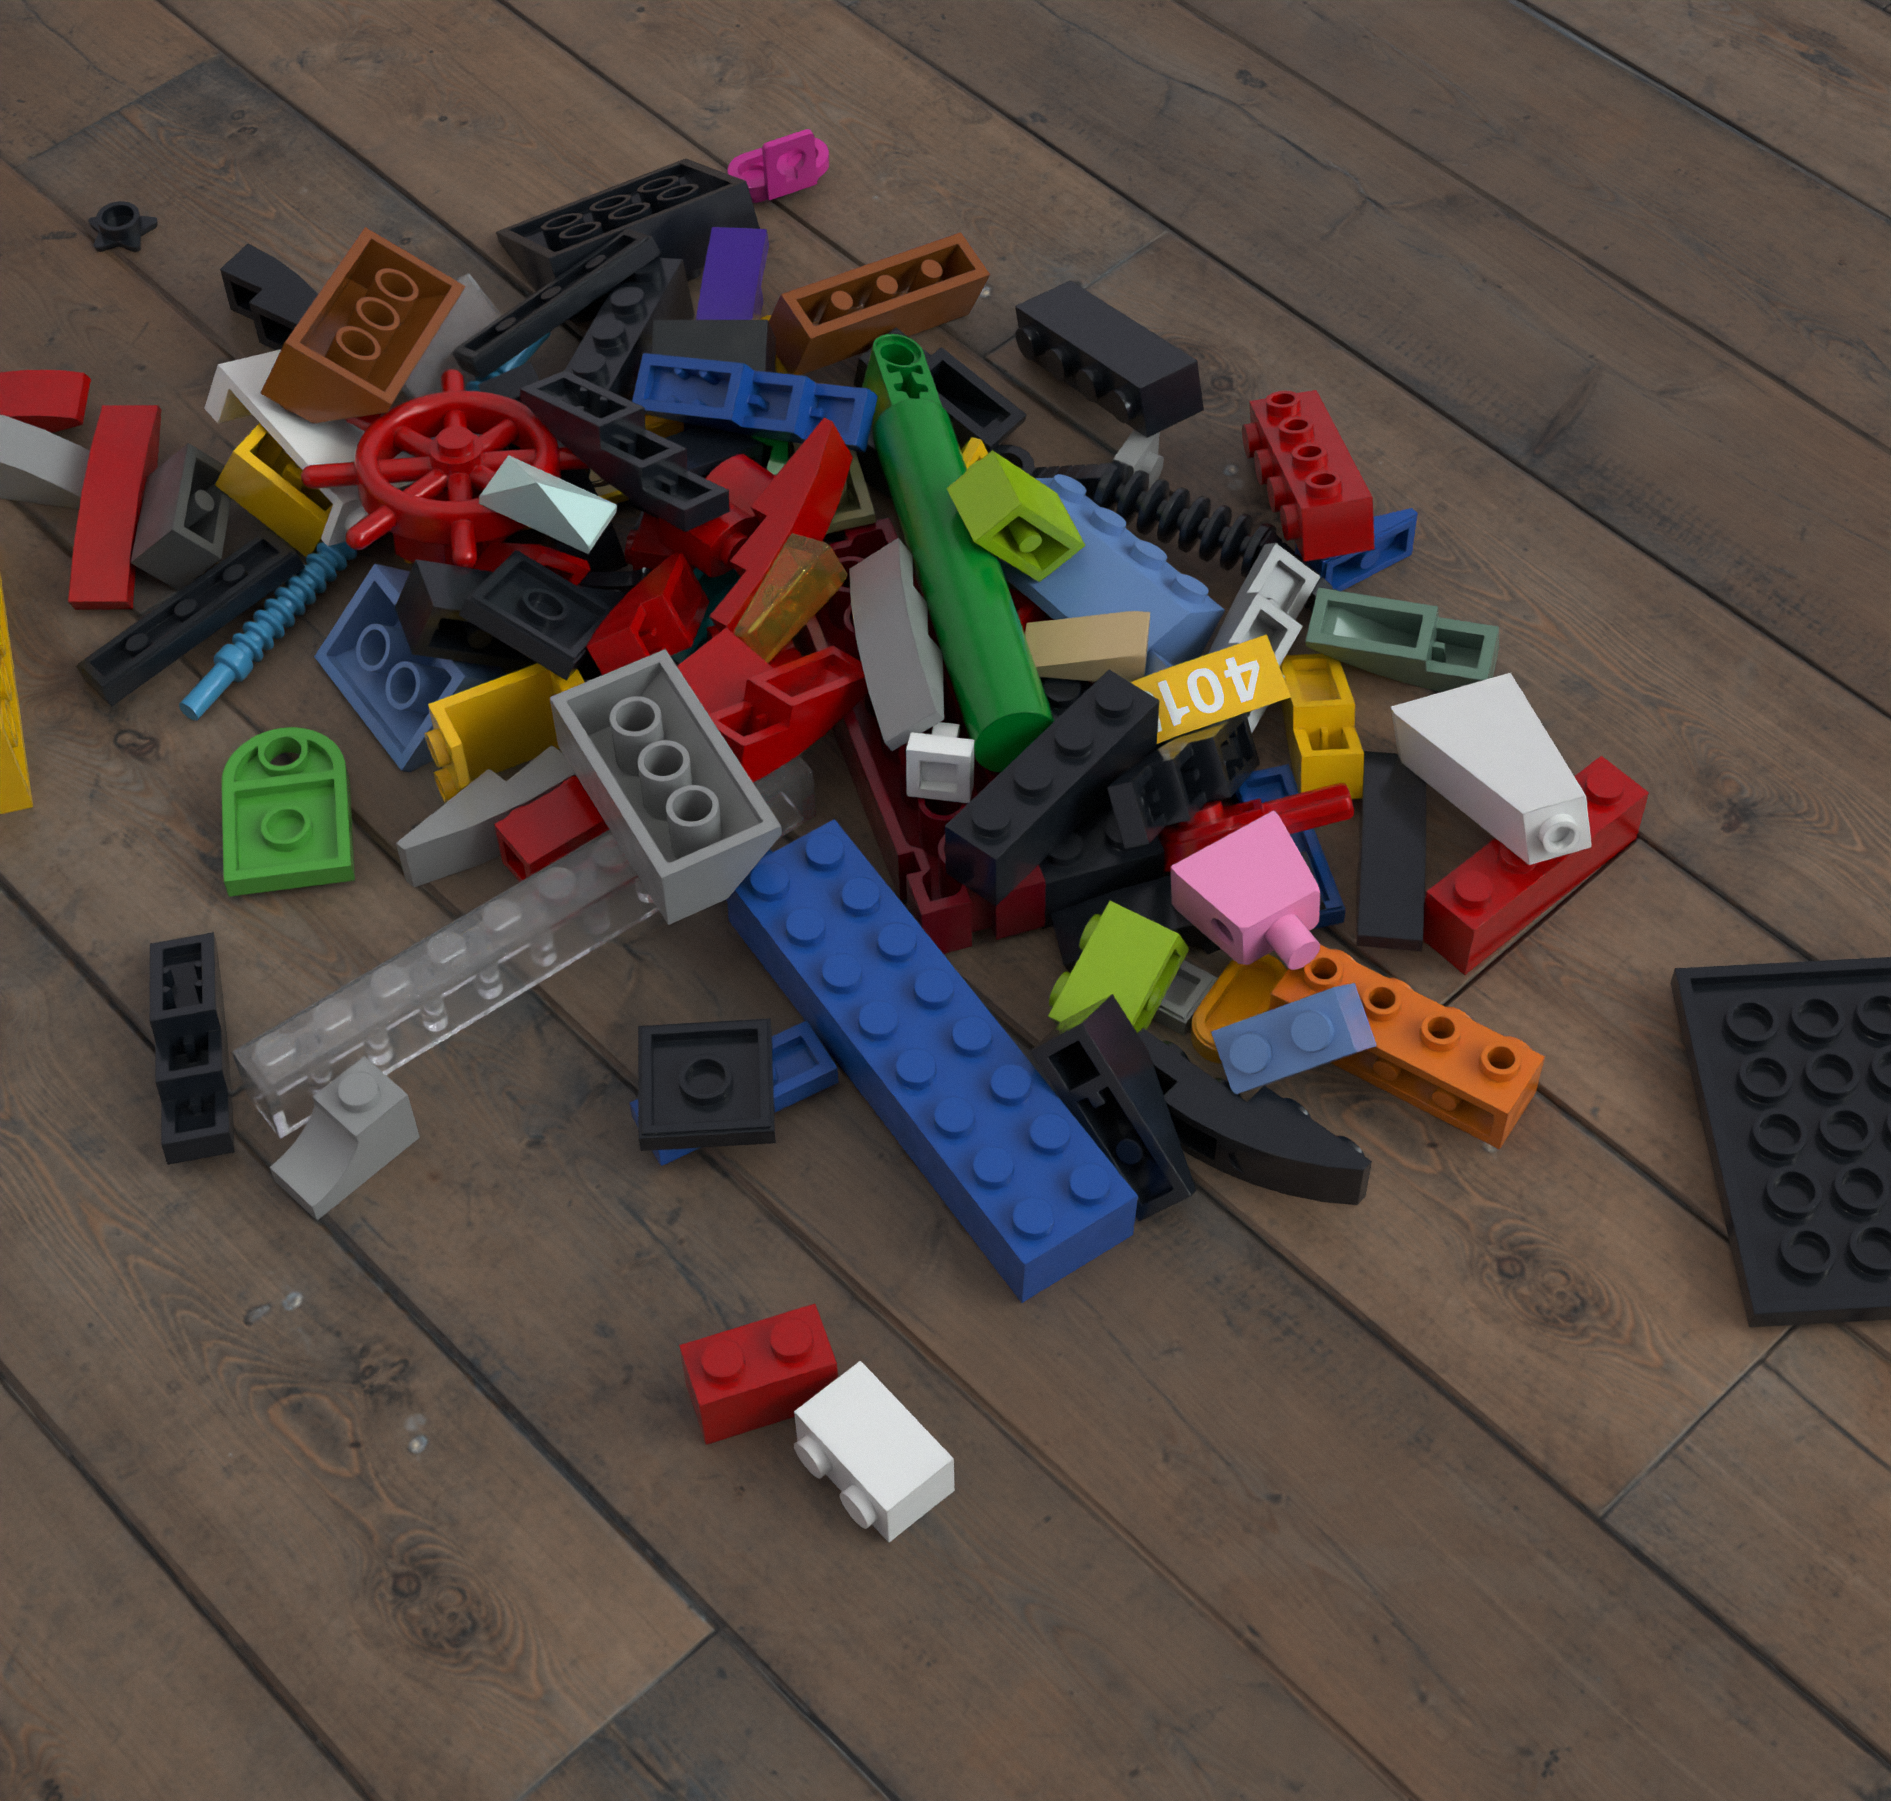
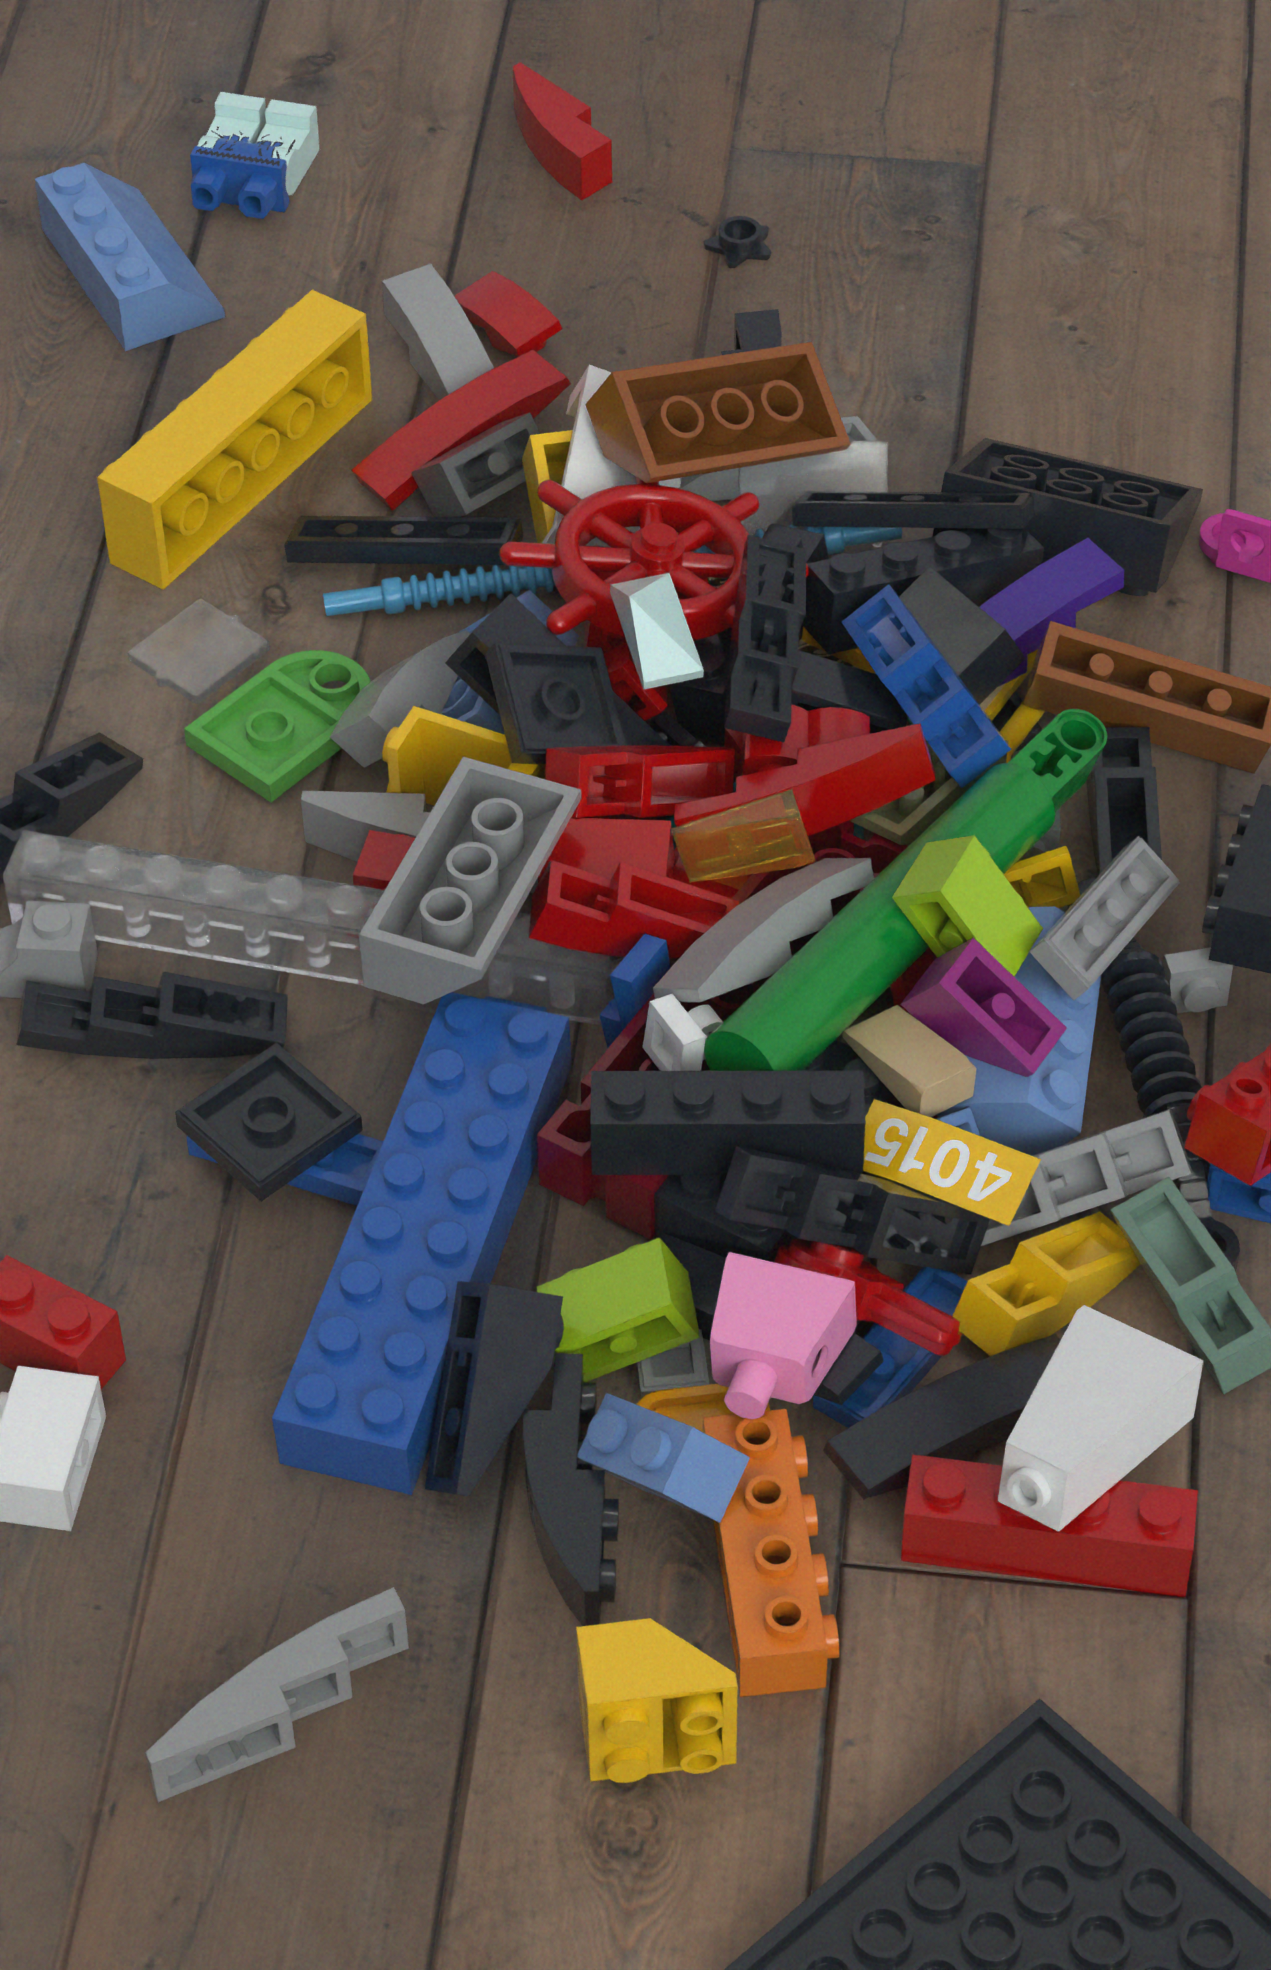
camera: 50 degrees right, 5 degrees down
(132, 825) = (198, 651): none -> clear piece
(363, 722) = (386, 701): none -> light grey slope
(498, 1106) = (141, 1021): none -> black slope
(842, 772) = (634, 984): none -> blue slope
(1064, 460) = (1105, 918): none -> light grey tile
(1093, 574) = (984, 1010): none -> magenta slope
(1265, 1452) = (255, 1708): none -> light grey slope
(1497, 1195) = (652, 1703): none -> yellow slope

